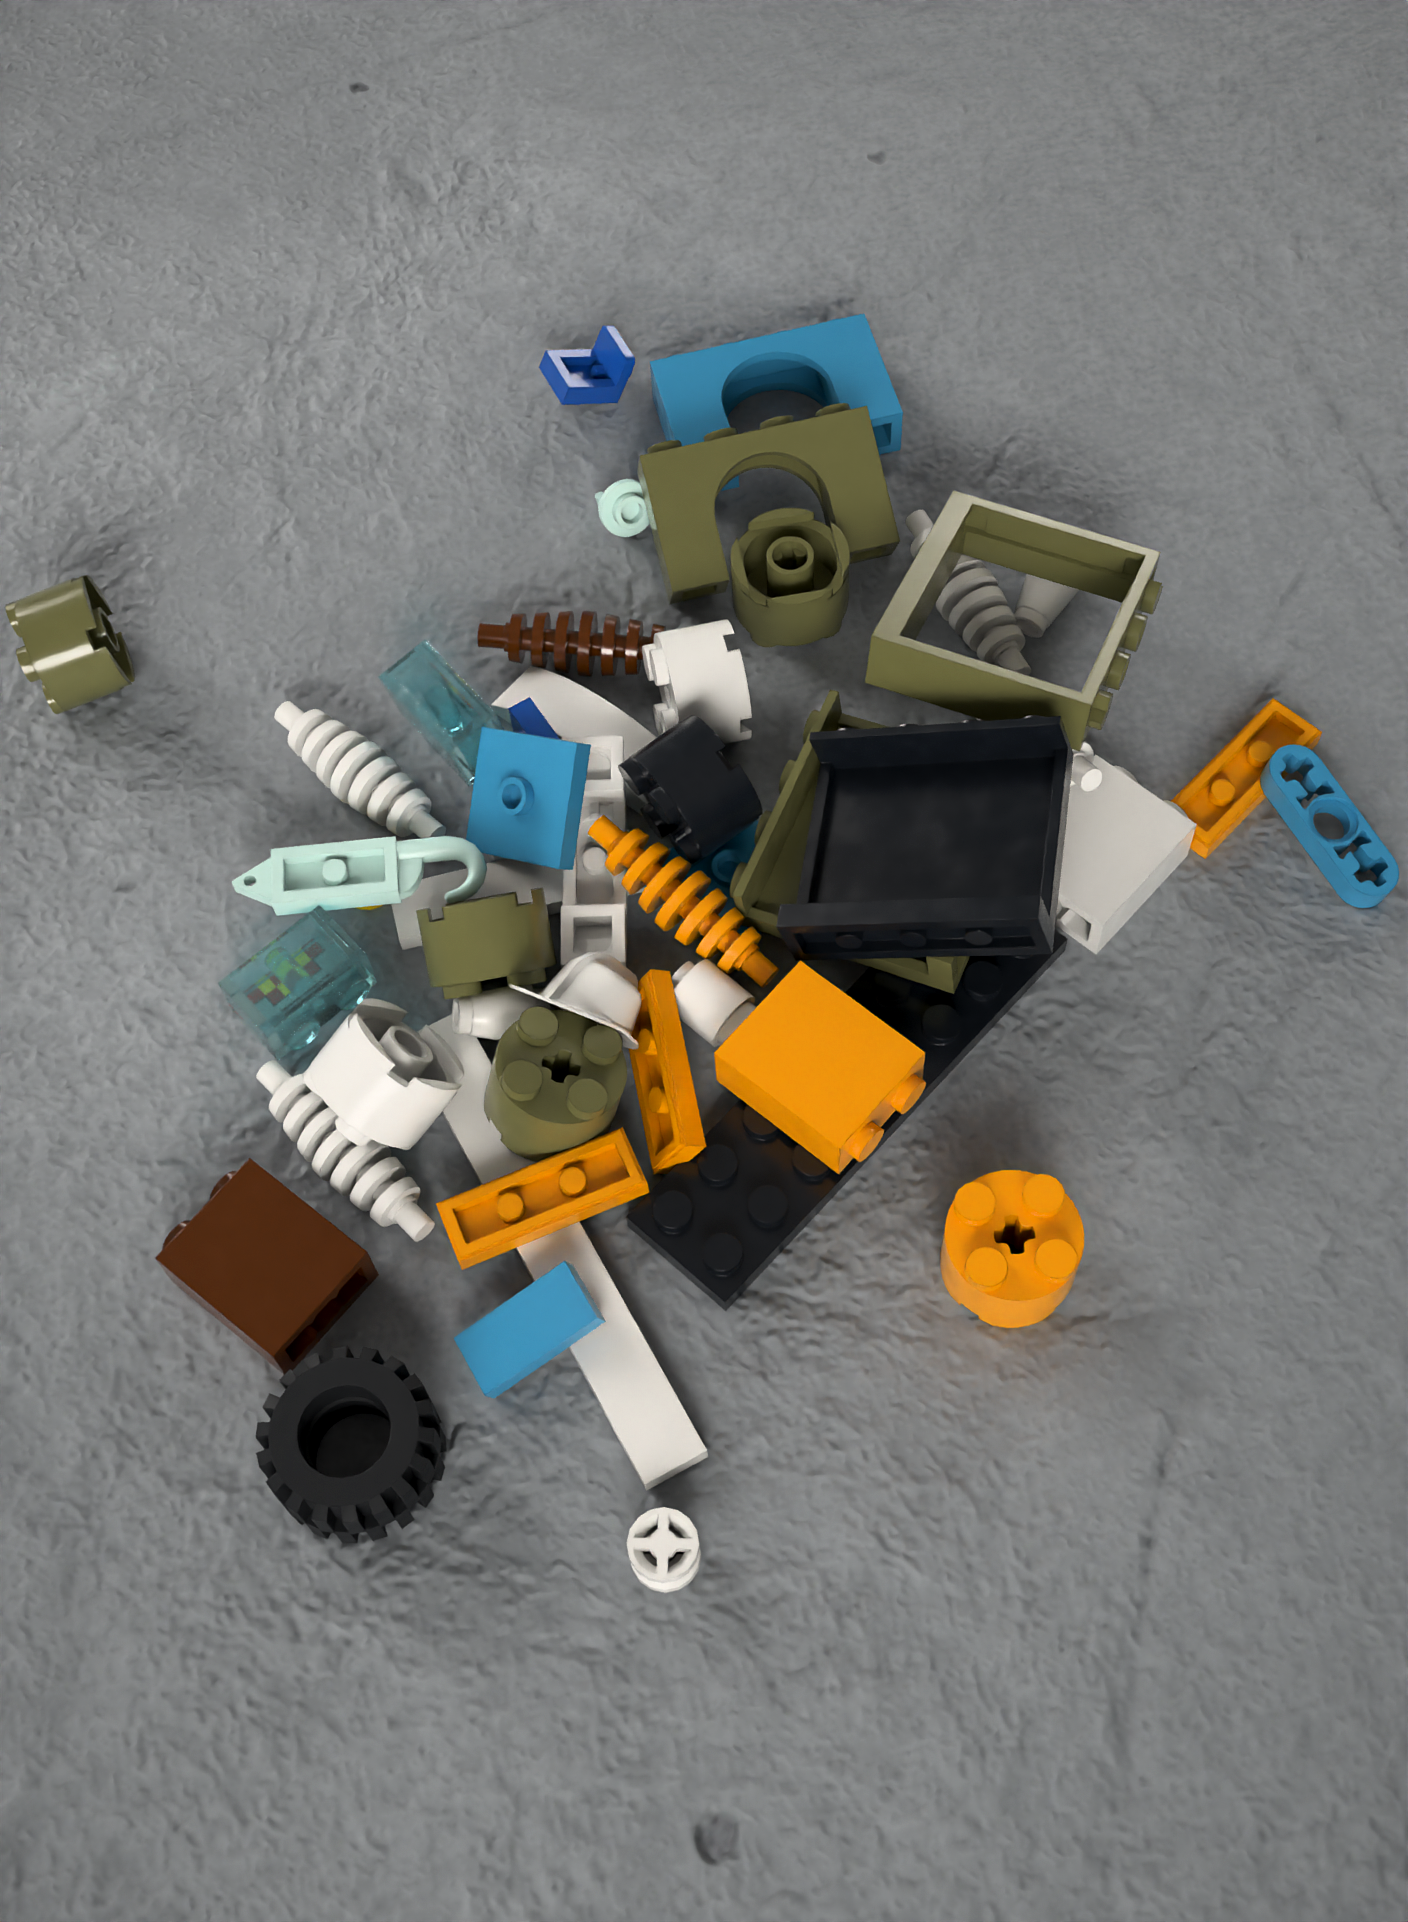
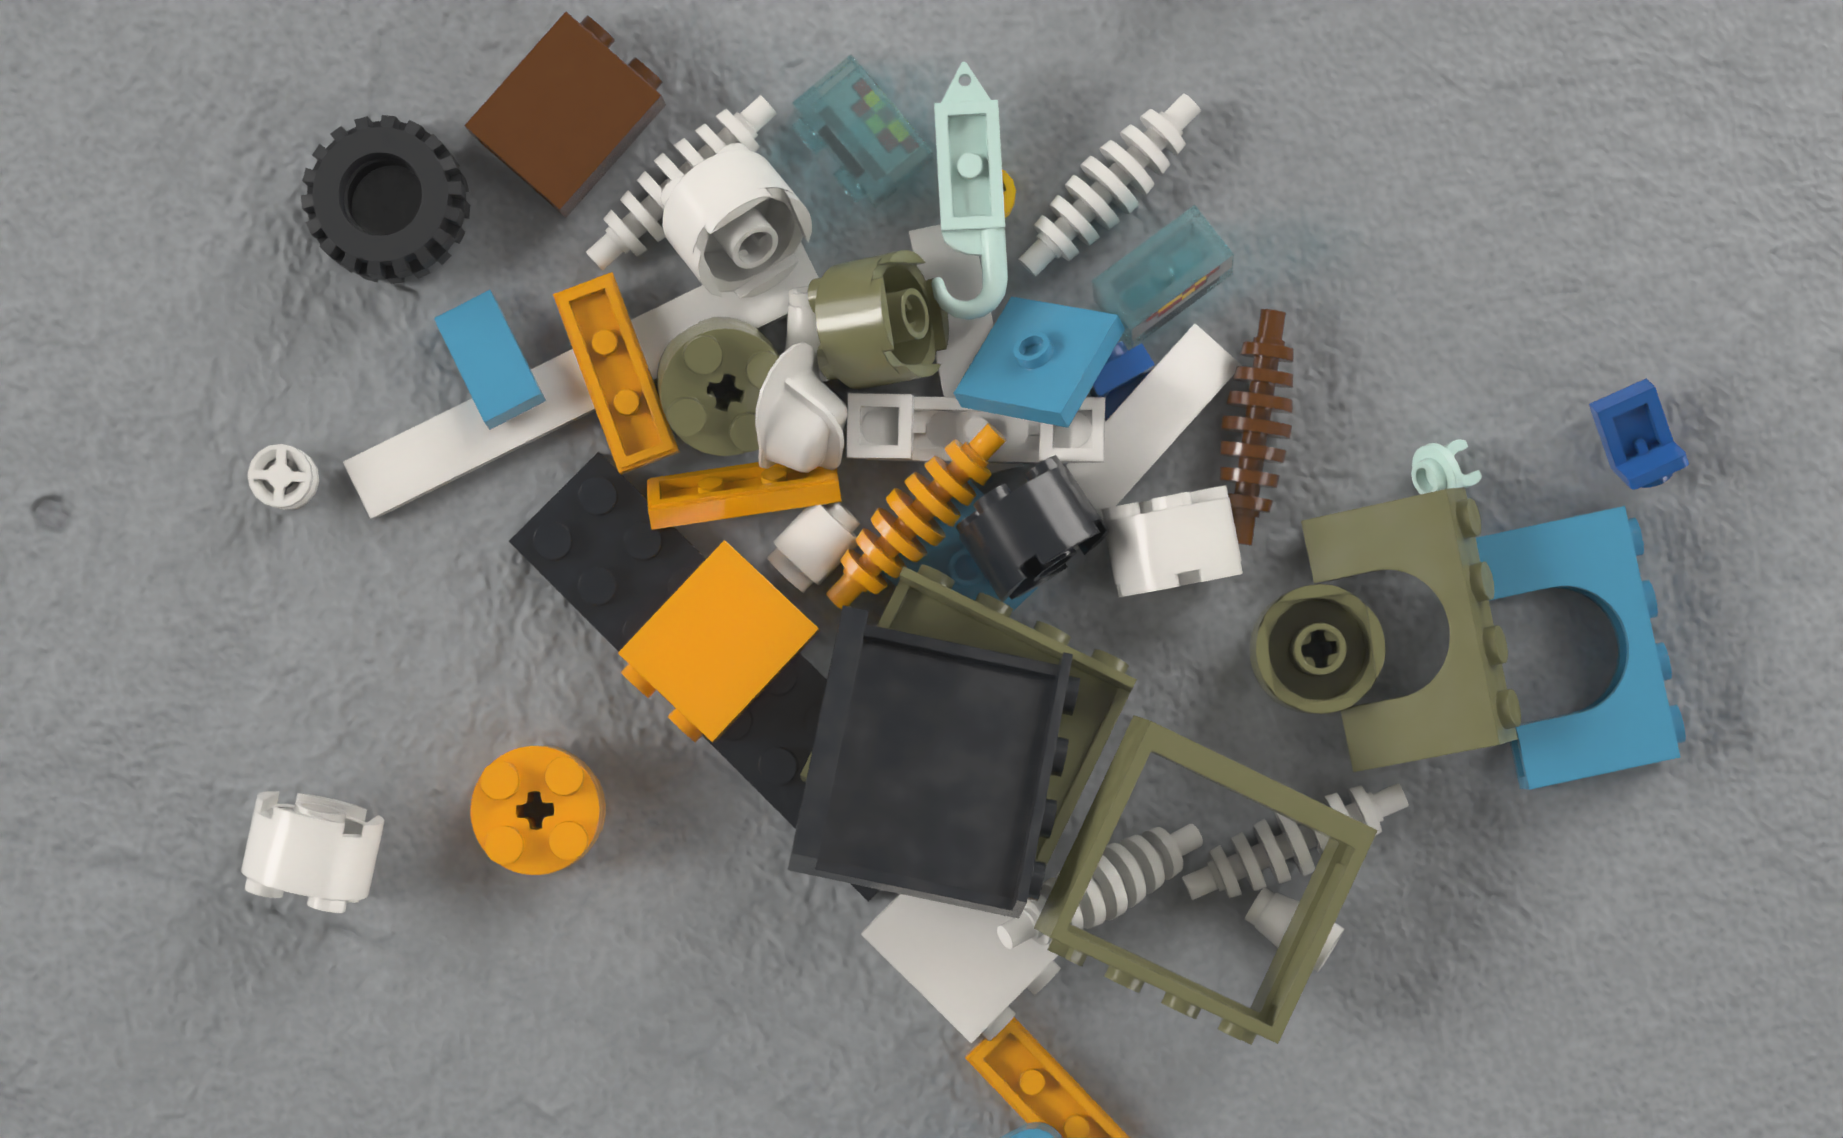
camera: 90 degrees right, 25 degrees up
(1085, 1479) = (311, 850): none -> white brick

